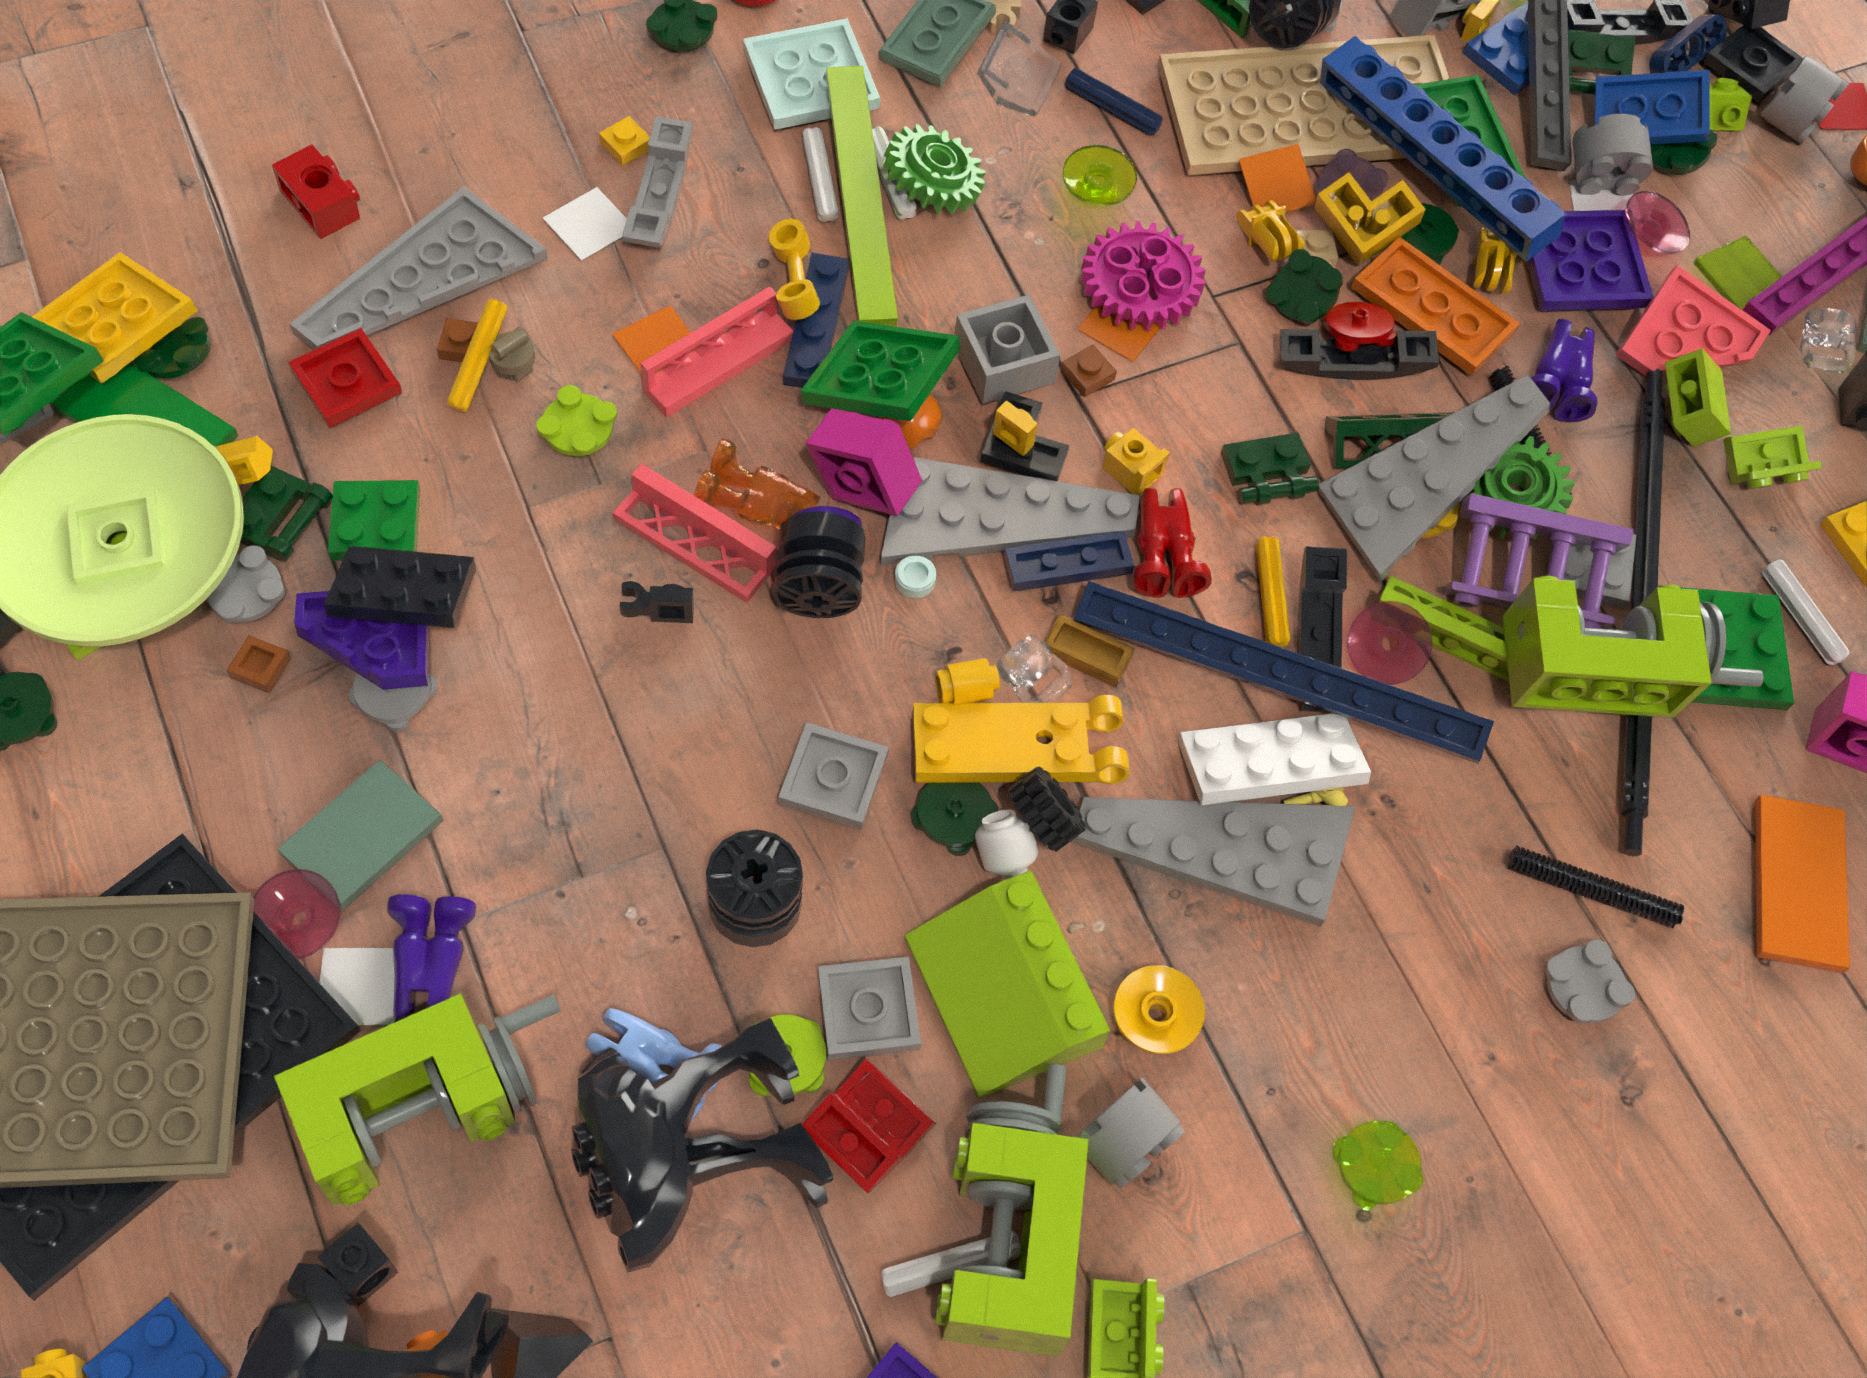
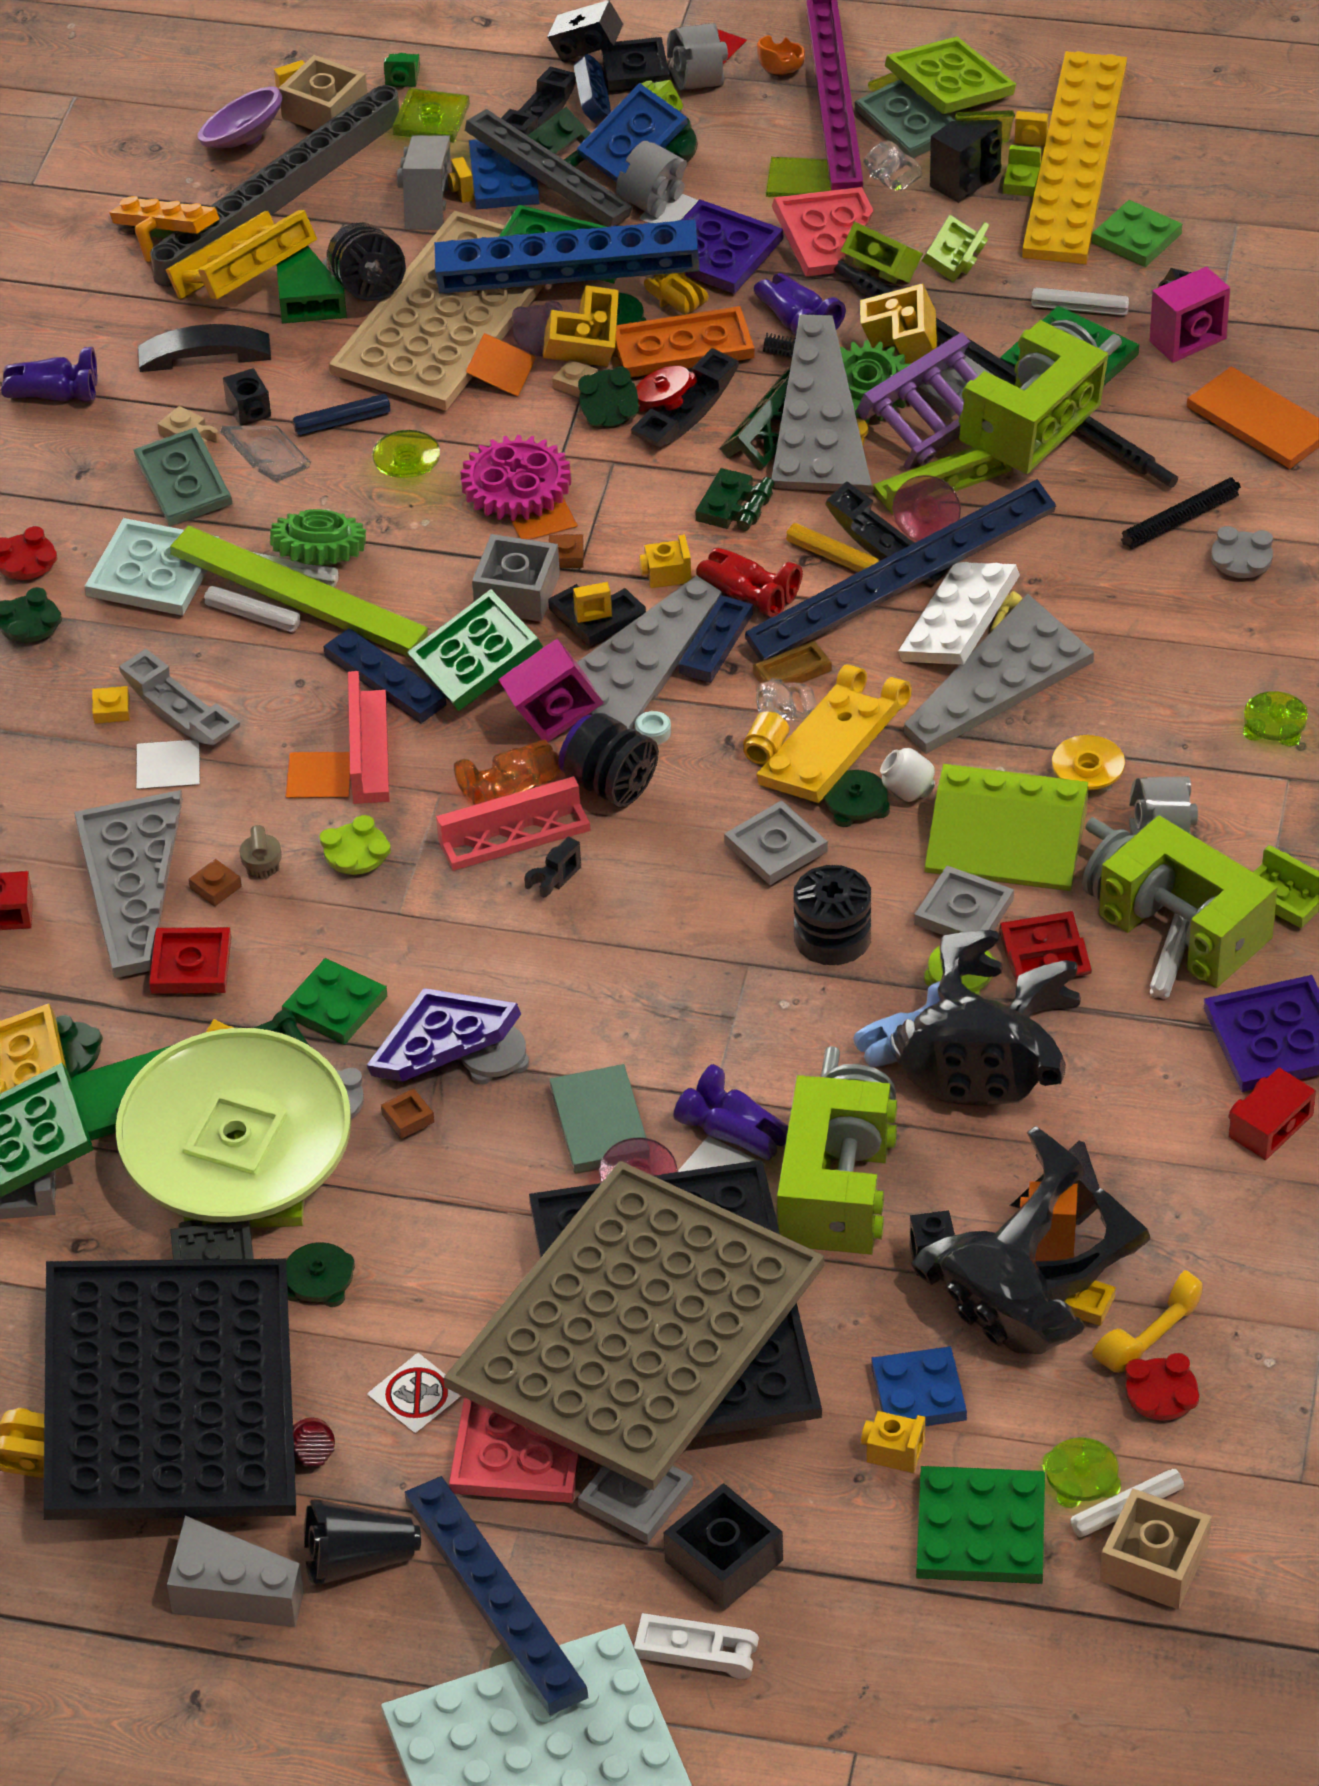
camera: 45 degrees left, 15 degrees down
(400, 586) = (418, 998): black plate -> none
(477, 355) = (246, 871): yellow axle -> none
(791, 245) = (305, 655): yellow piece -> none
(1047, 809) = (901, 733): black tyre -> none
(1270, 230) = (541, 390): yellow arm -> none
(1614, 471) = (902, 320): none -> yellow brick
(1657, 222) = (724, 190): clear pink dish -> none

